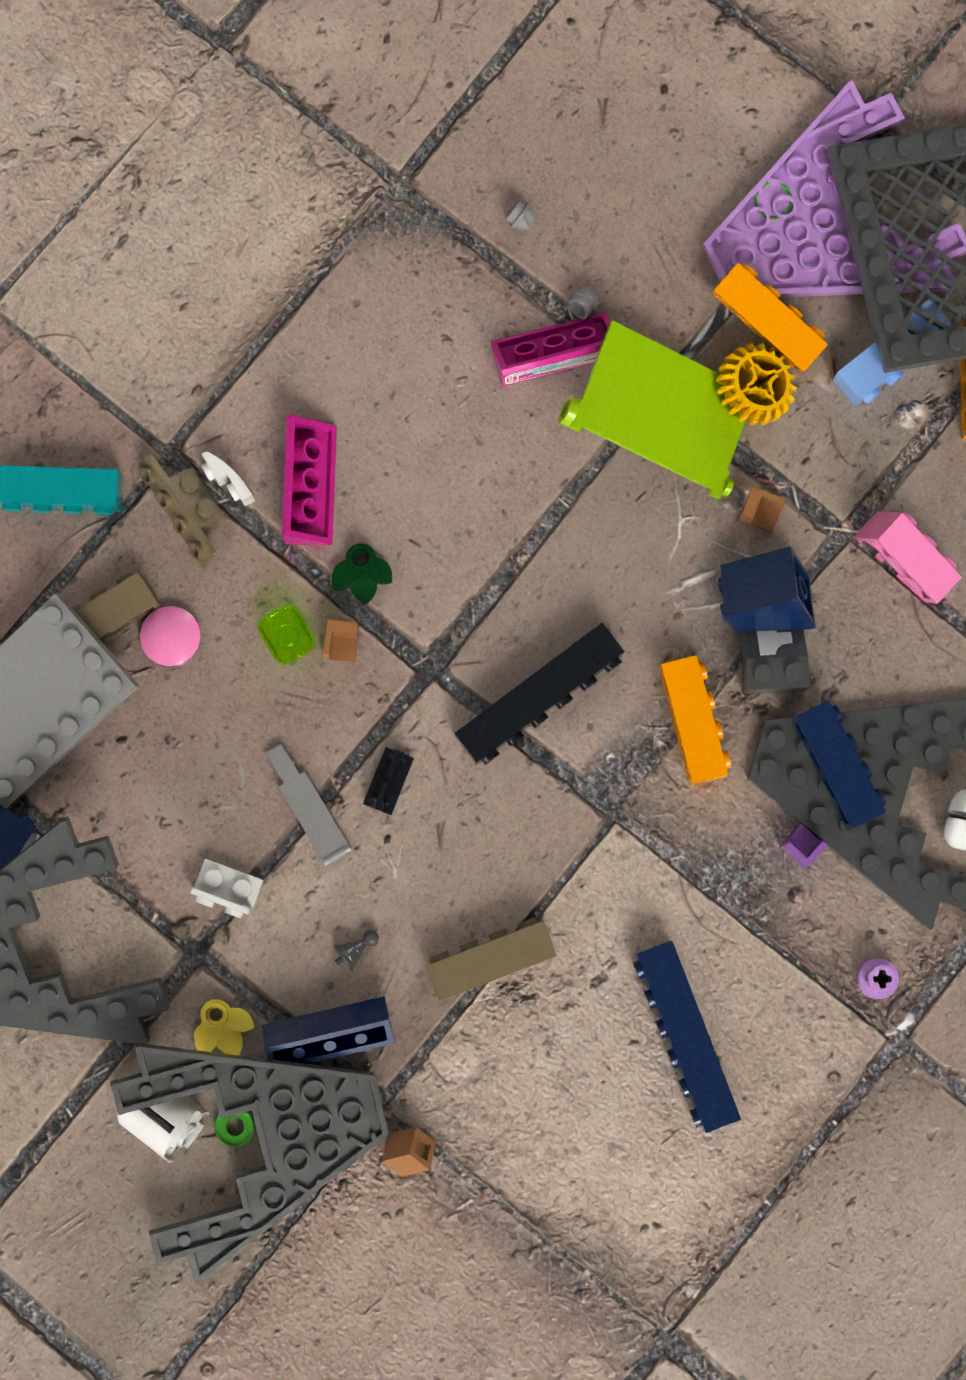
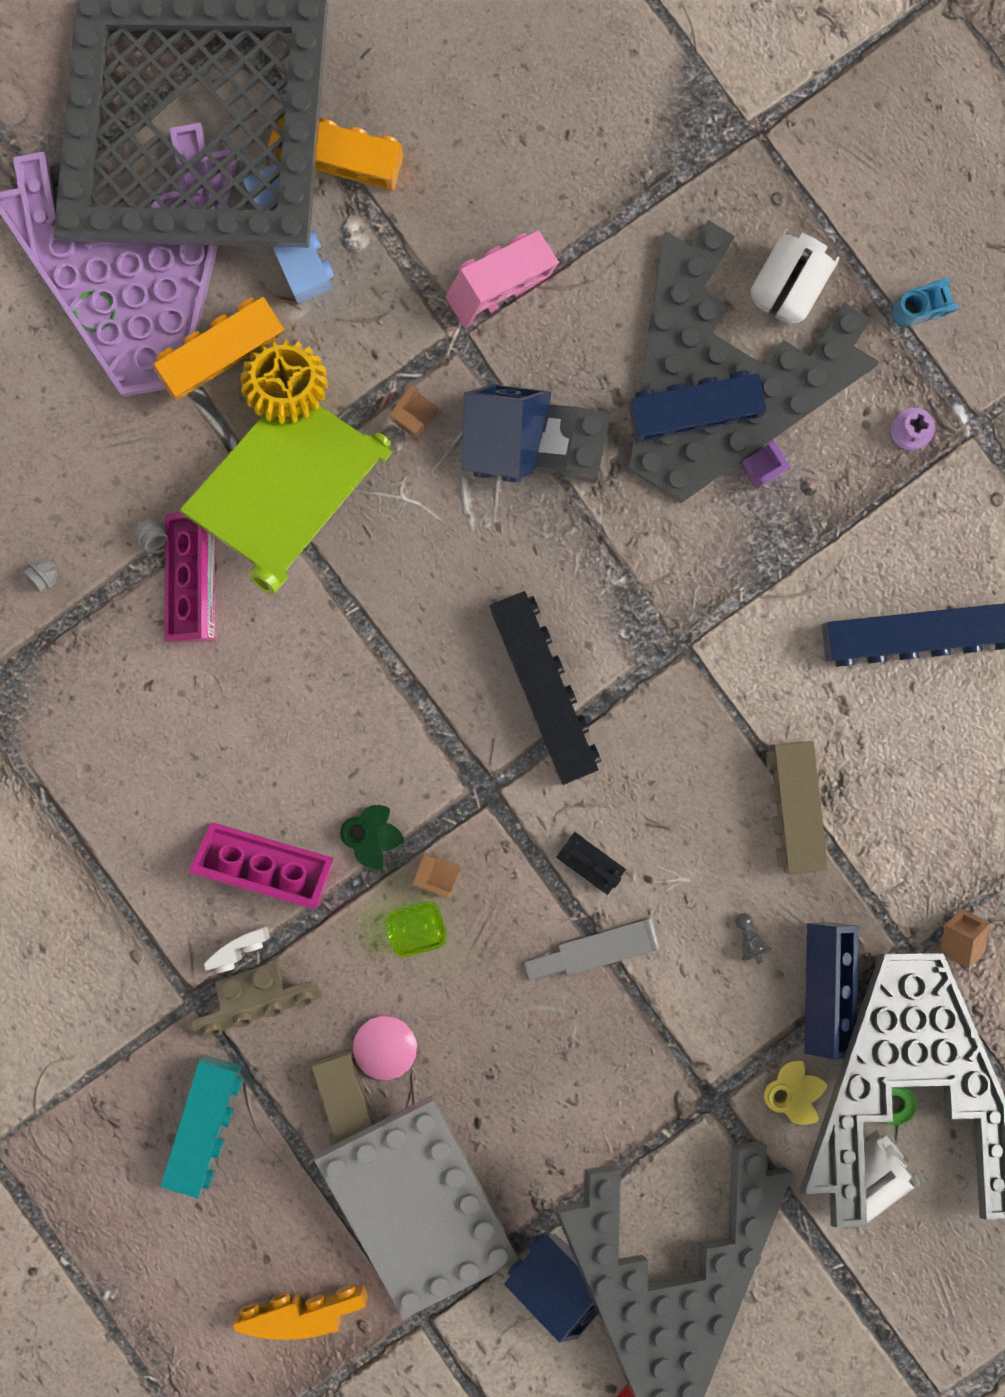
camera: 75 degrees left, 5 degrees up
(226, 887) = (658, 1054): white bracket -> none
(693, 720) = (611, 539): light orange brick -> none

